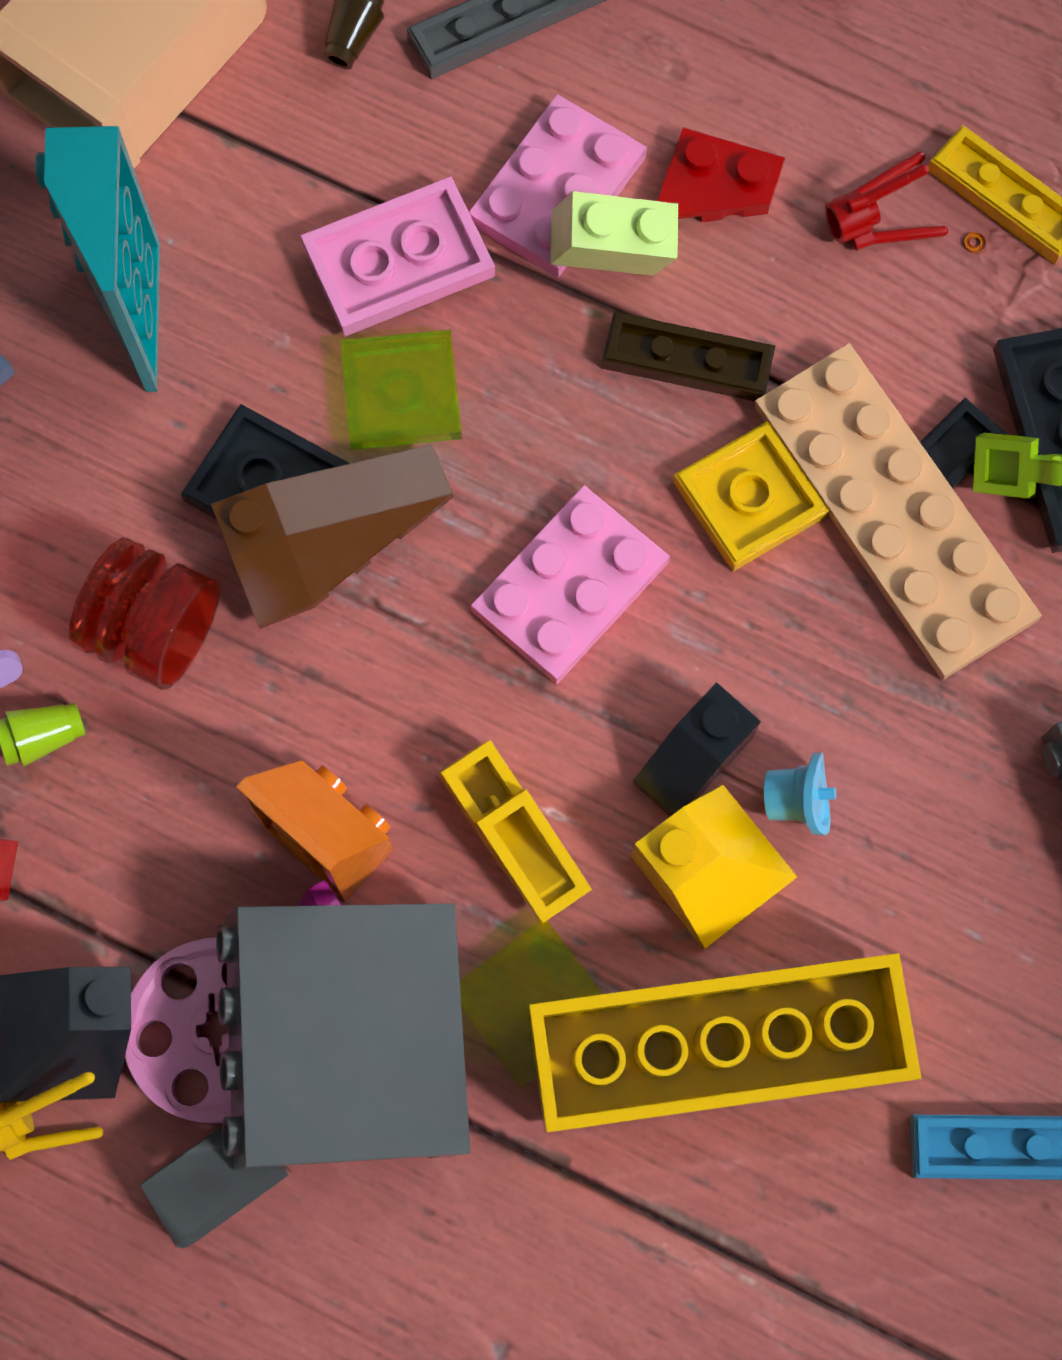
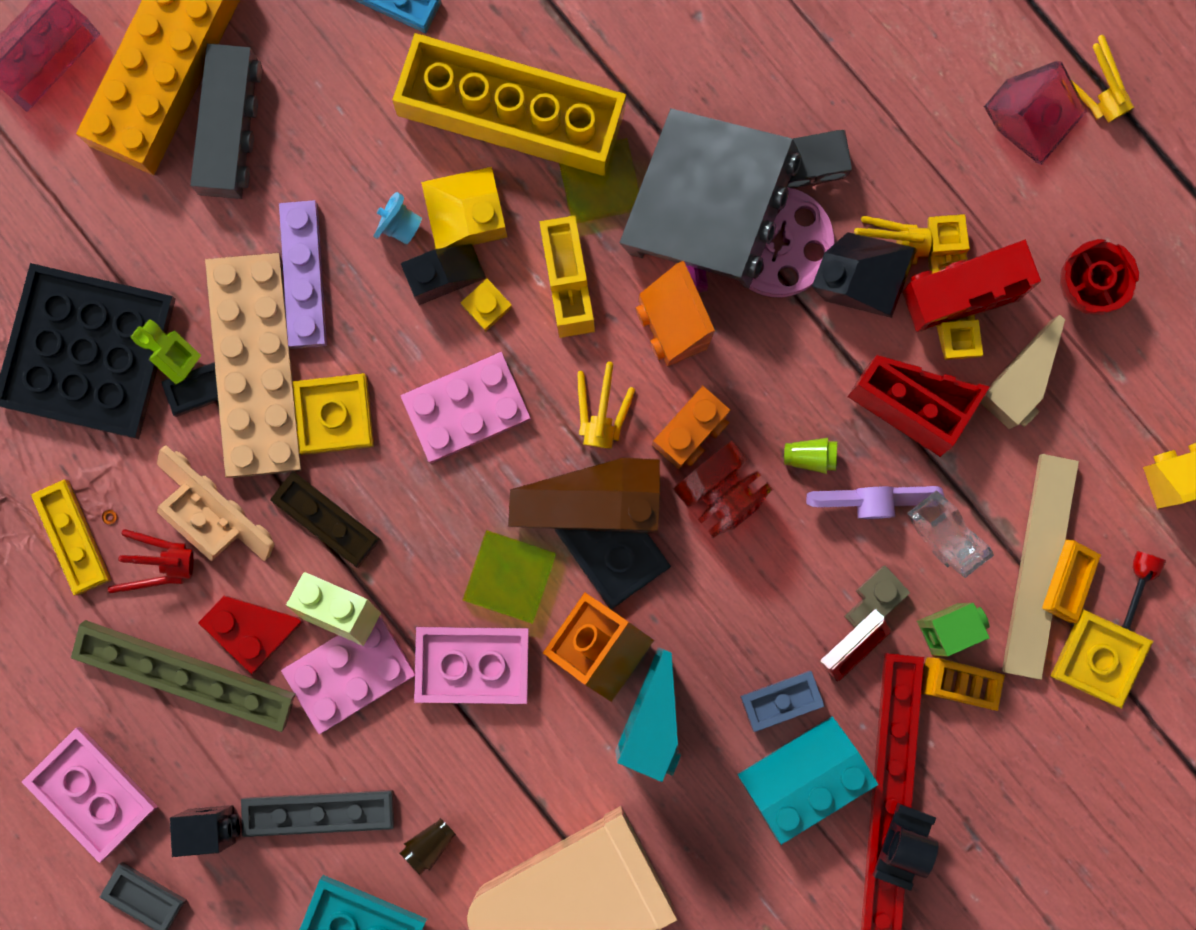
camera: 155 degrees left, 10 degrees up
(230, 686) = (691, 427): none -> orange brick
(236, 345) = (598, 647): none -> orange slope
(365, 633) = (600, 430): none -> yellow plant
(611, 739) = (486, 304): none -> yellow plate
(768, 87) = (183, 675): none -> olive plate
(850, 282) = (204, 514): none -> light nougat bracket
(896, 666) = (302, 274): none -> lavender plate

